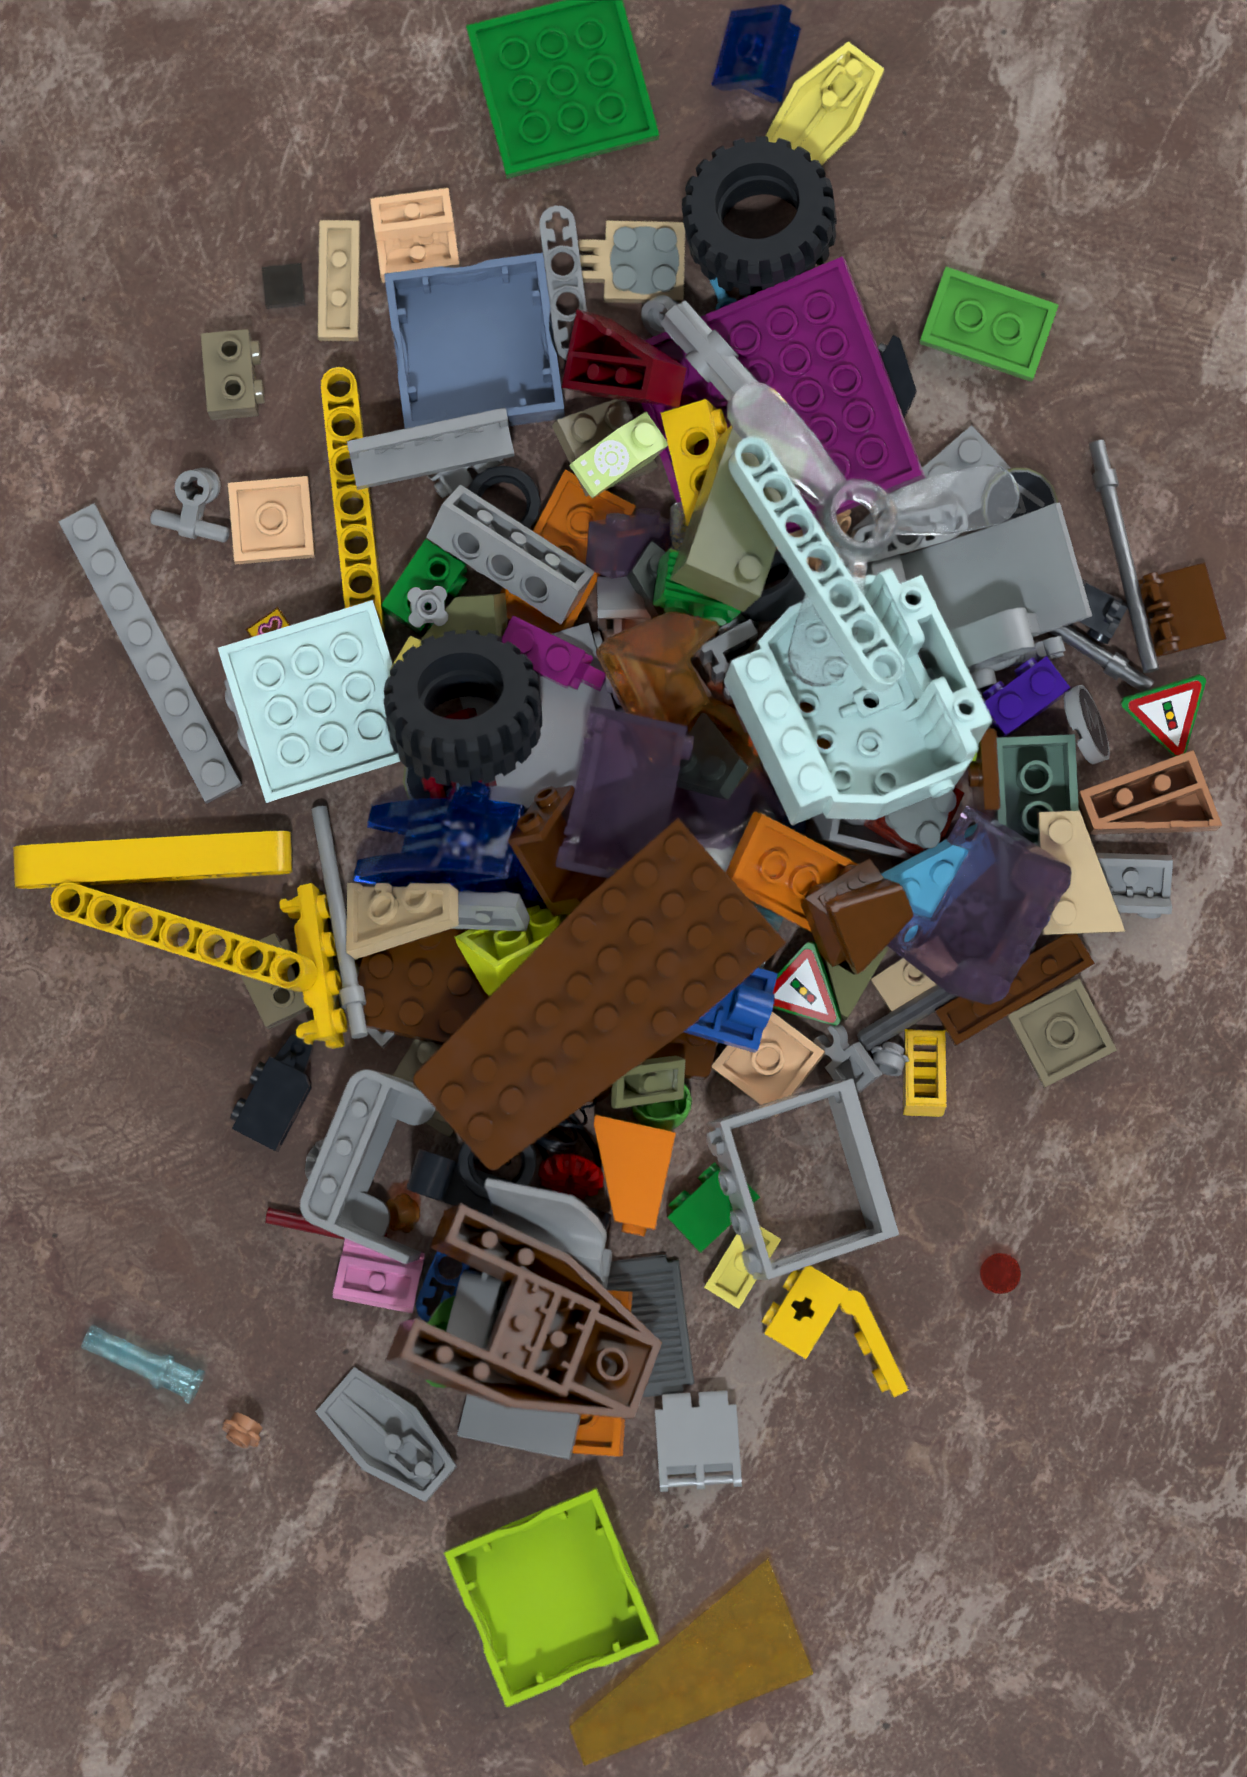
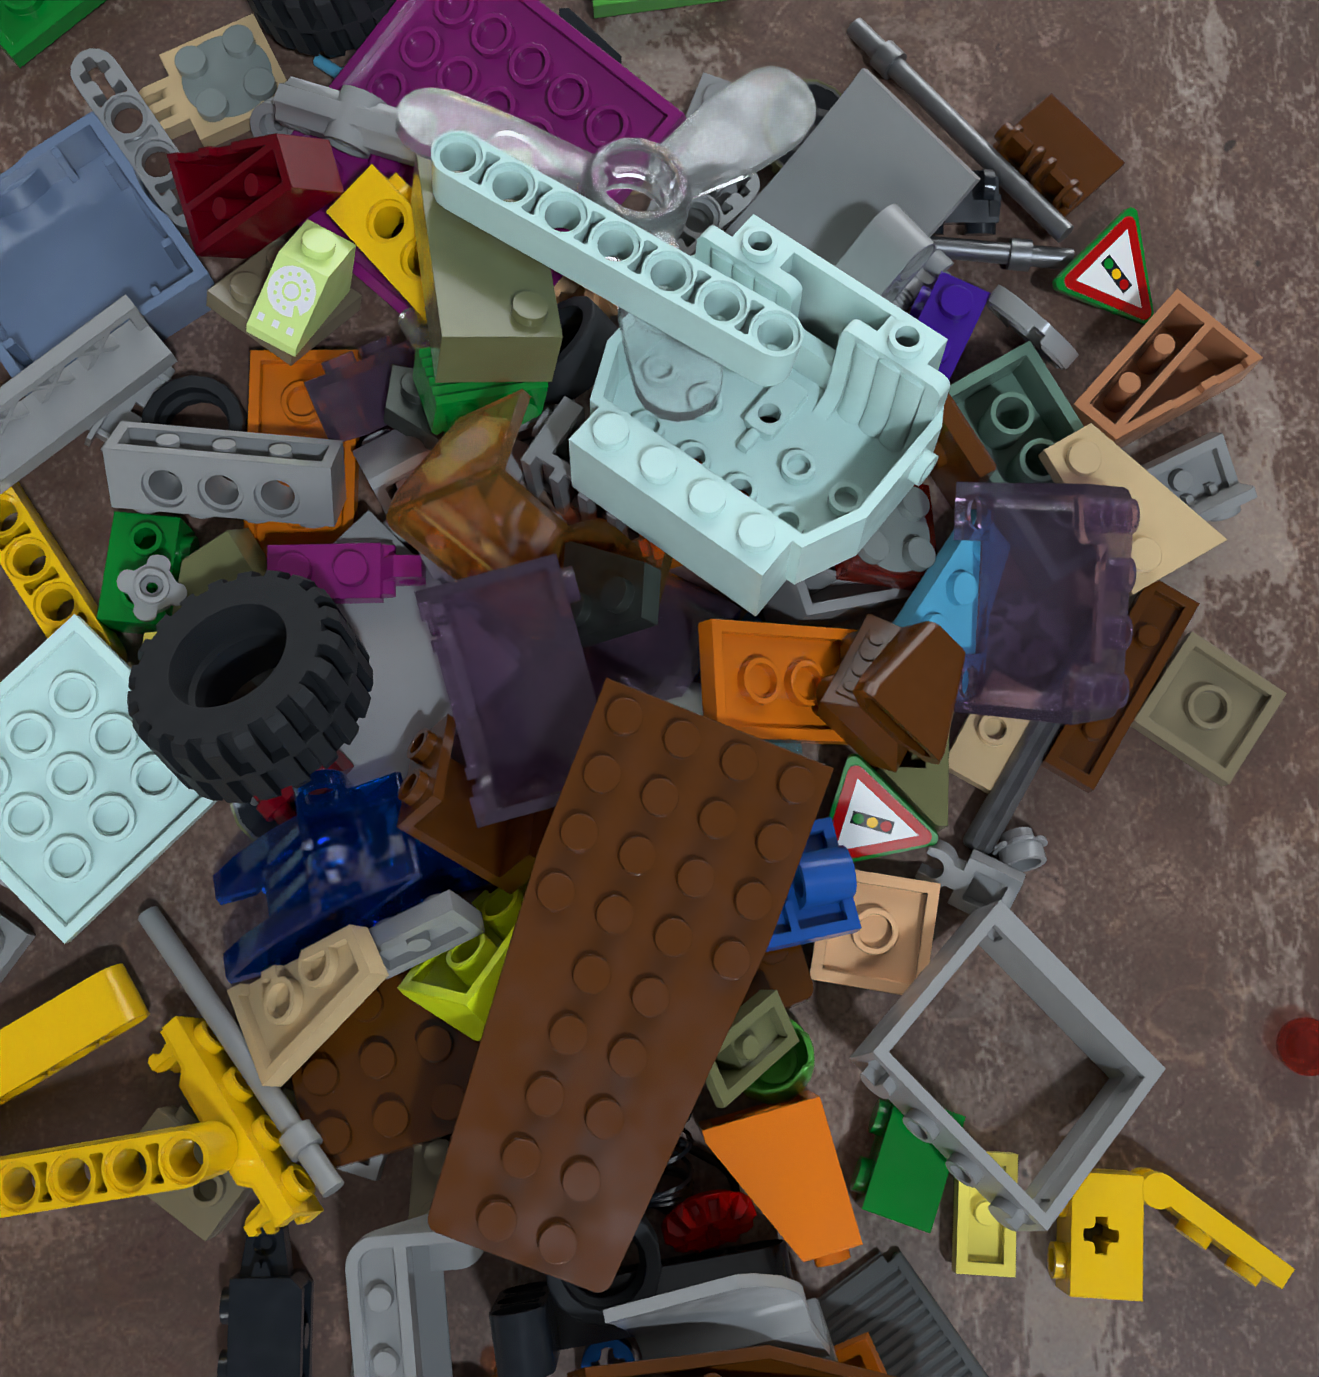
camera: 30 degrees left, 5 degrees down
(924, 1106) = (1099, 852): yellow slope -> none

